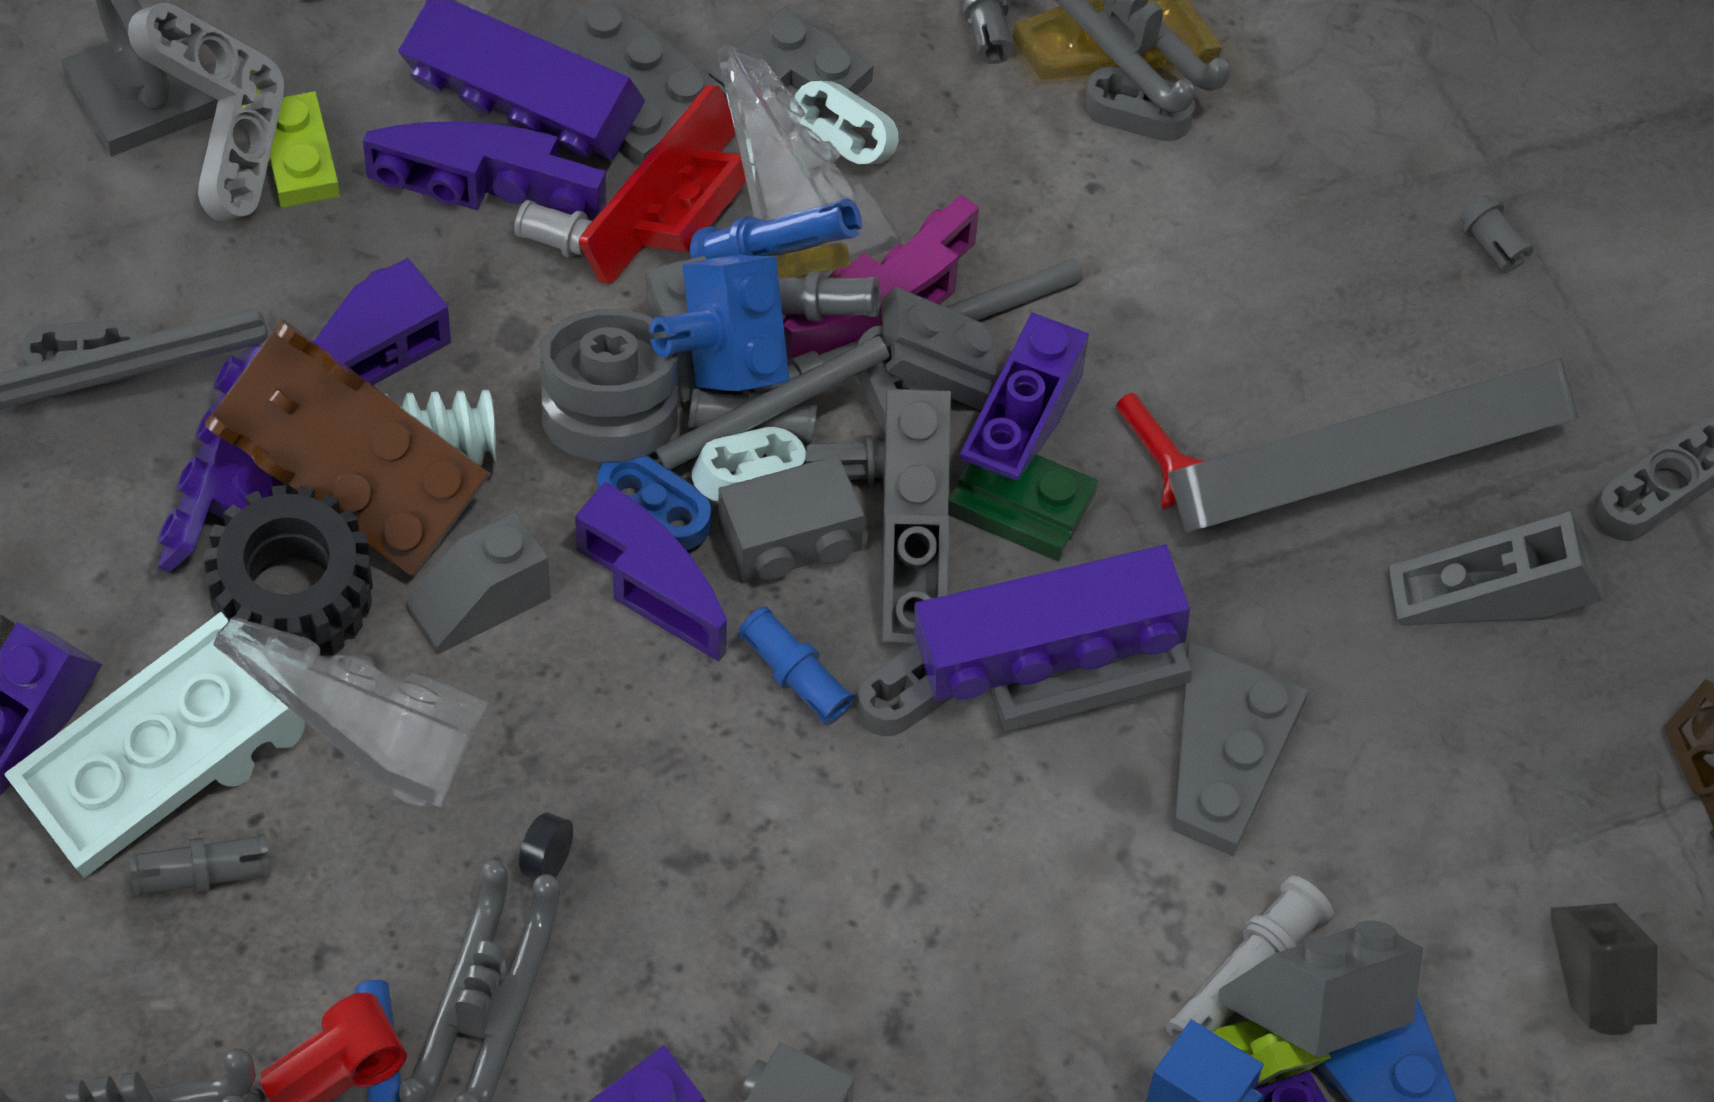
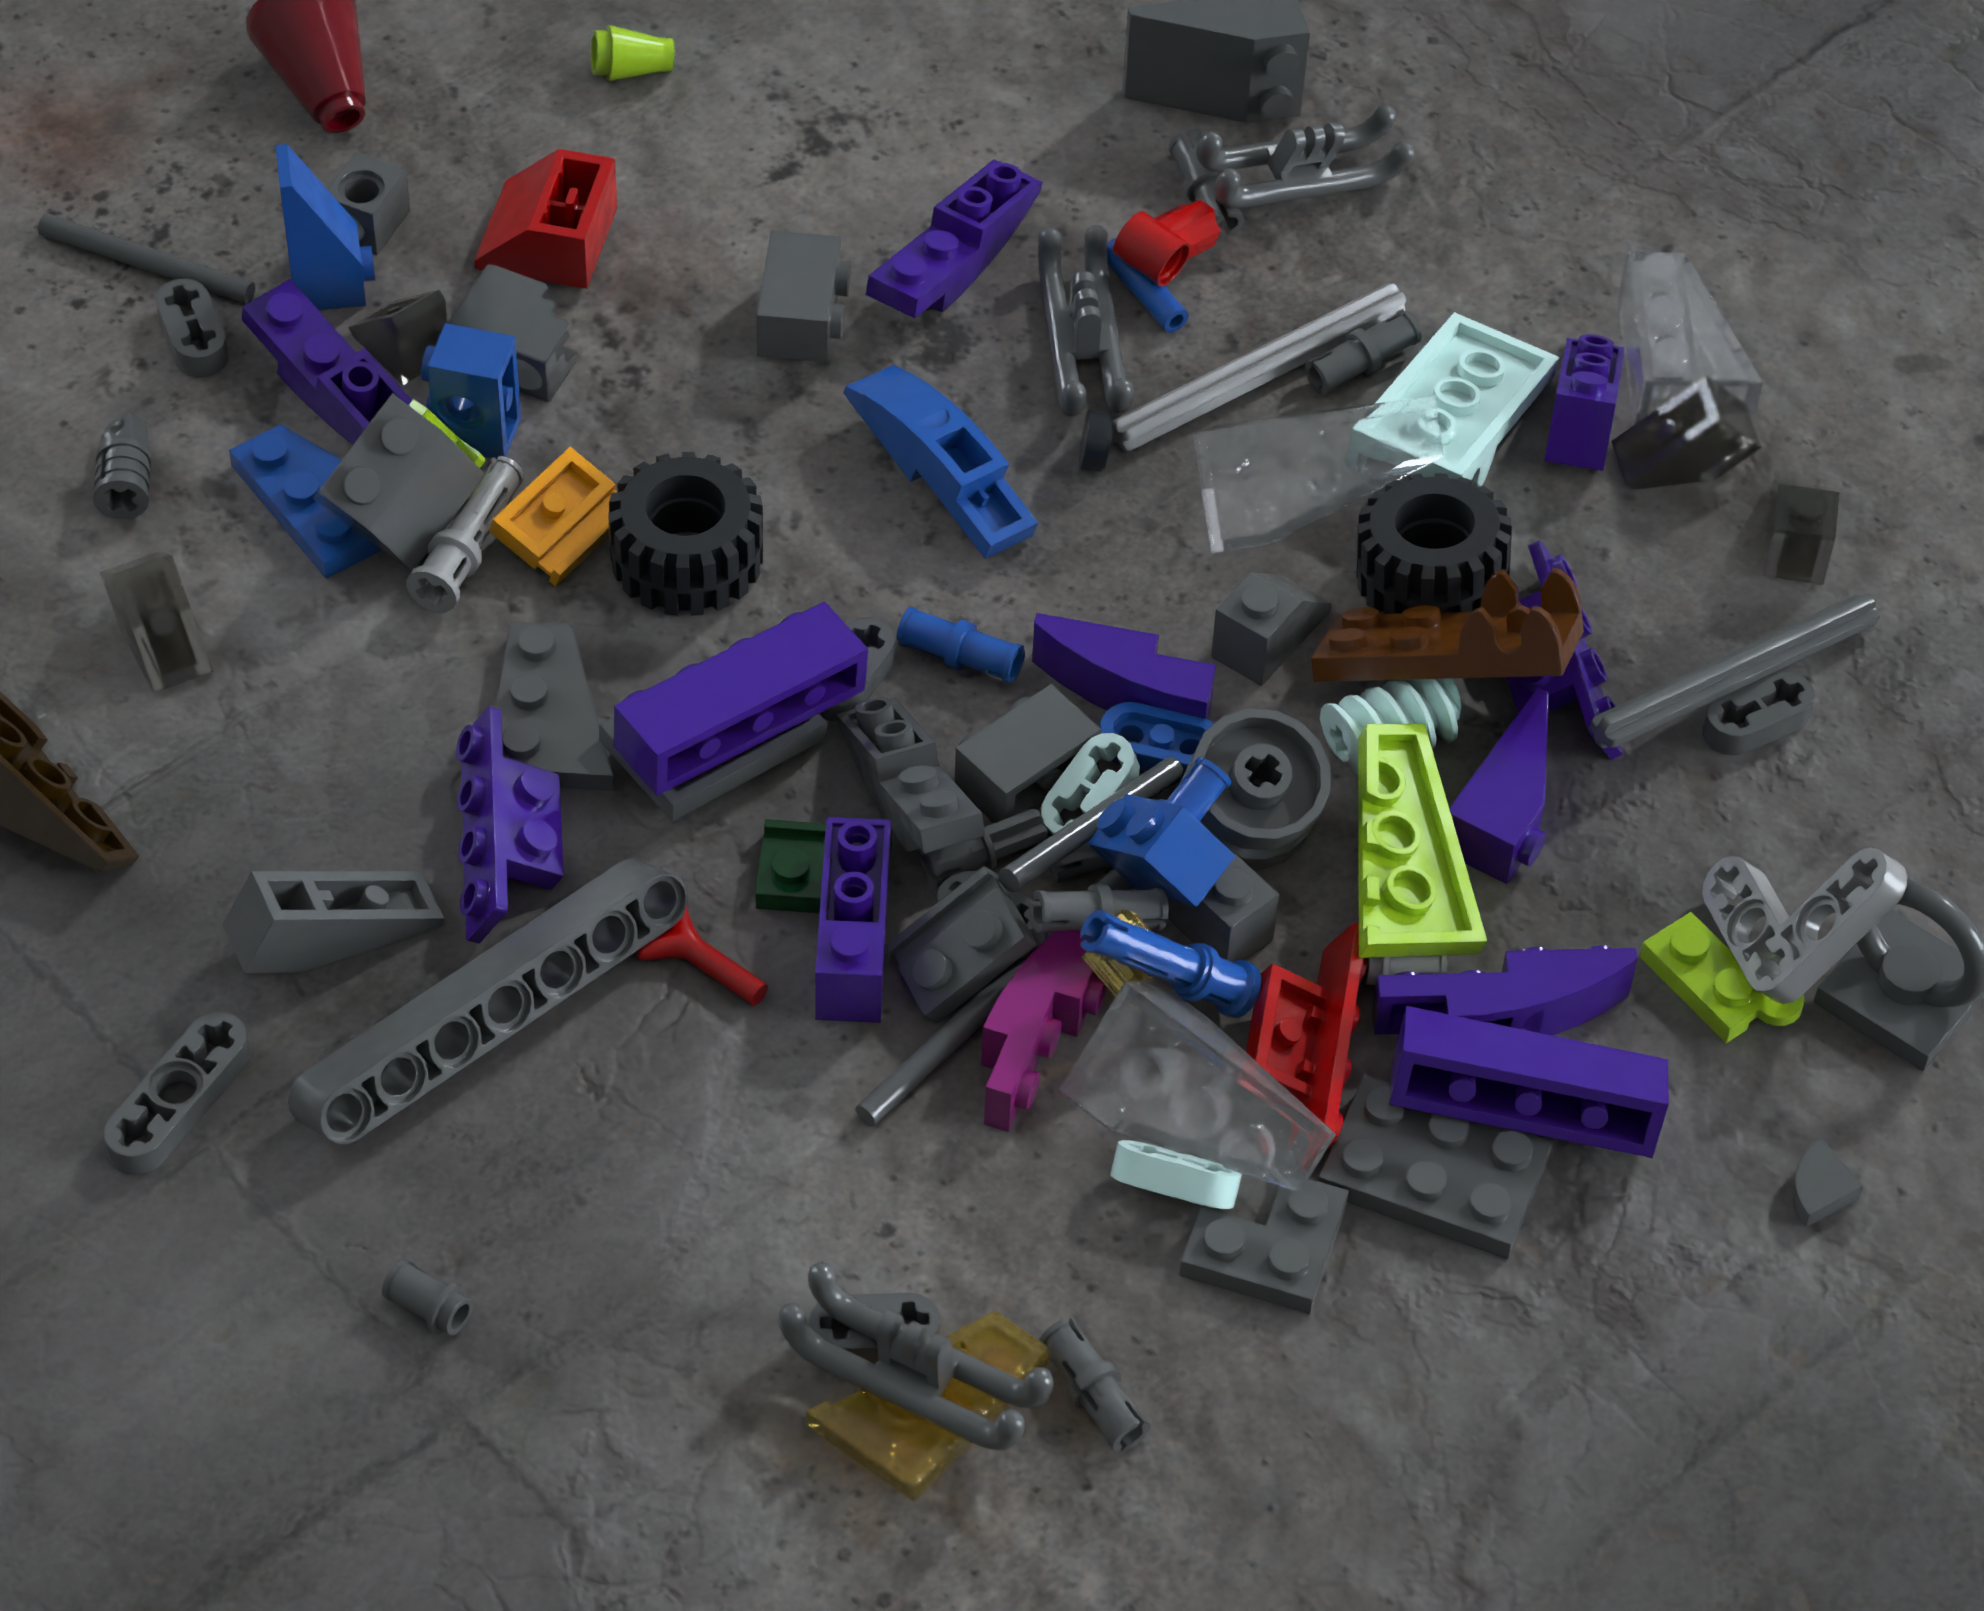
camera: 160 degrees right, 5 degrees down
(307, 896) = (1255, 368): none -> light grey axle
(502, 282) = (1409, 855): none -> lime wing
(722, 876) = (947, 449): none -> blue slope
(1038, 816) = (690, 569): none -> black tyre
(1142, 952) = (558, 516): none -> light orange plate
(1307, 620) = (507, 824): none -> dark purple bracket

